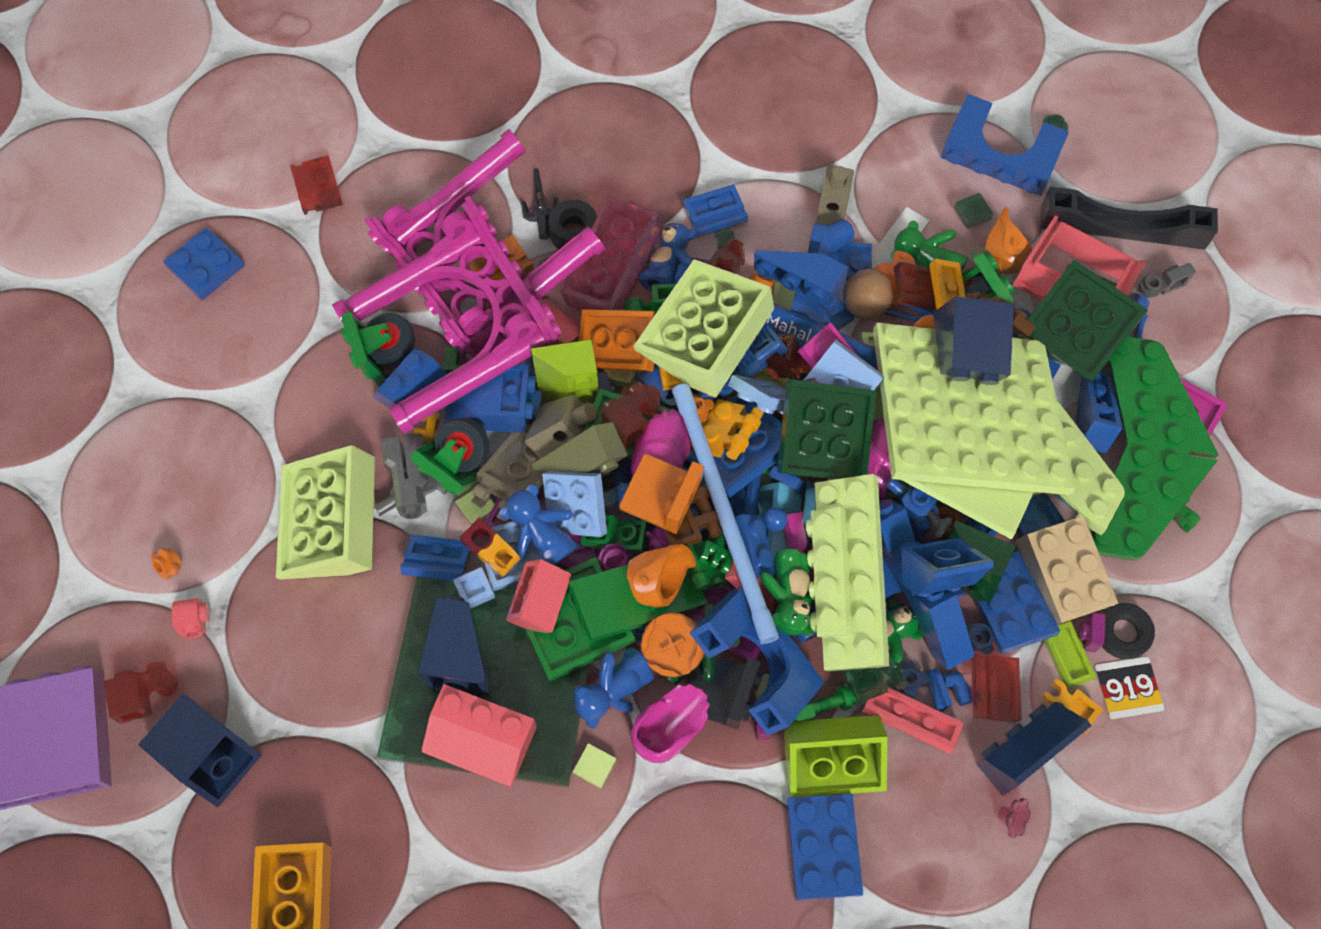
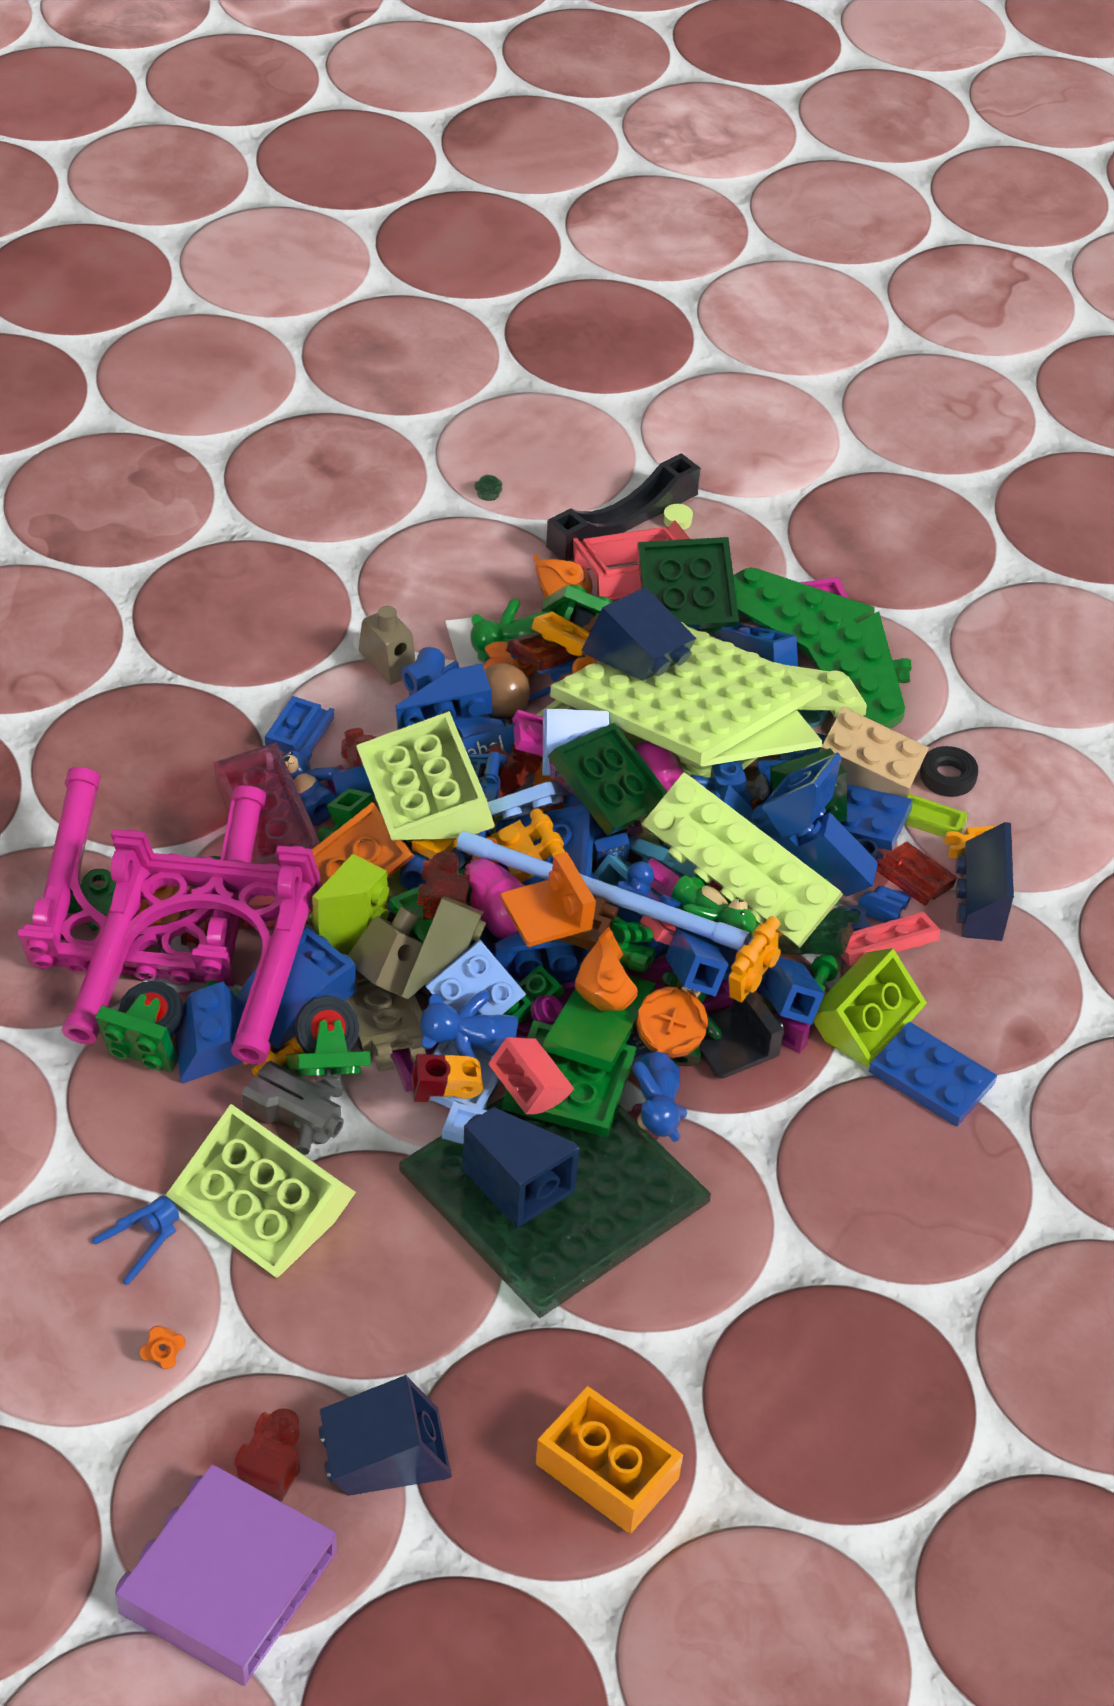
camera: 50 degrees left, 20 degrees down
(190, 617) = (241, 1364): coral plate -> none
(255, 475) = (154, 1217): none -> blue plant
(434, 558) = (399, 1138): blue plate -> none
(472, 511) = (378, 1085): yellowish green tile -> none
(478, 735) = (604, 1212): coral slope -> none
(541, 211) = (153, 834): black piece -> none
(569, 212) = (194, 808): black tyre -> none
(594, 766) = (710, 1169): yellowish green tile -> none
(657, 539) = (566, 969): magenta plate -> none
(670, 723) = (732, 1085): dark pink hair -> none
(723, 237) = (332, 743): clear green piece -> none
(778, 656) = (754, 959): none -> light orange plate
(973, 210) = (503, 583): clear green plate -> none
(1016, 817) = (1026, 940): clear pink plant -> none
(1026, 170) = (444, 543): blue arch -> none
(1093, 632) = (932, 784): magenta plate -> none
(1129, 687) = (994, 804): sticker -> none
(1167, 255) = (680, 513): none -> yellowish green tile
(1172, 279) = (702, 523): dark grey plate -> none

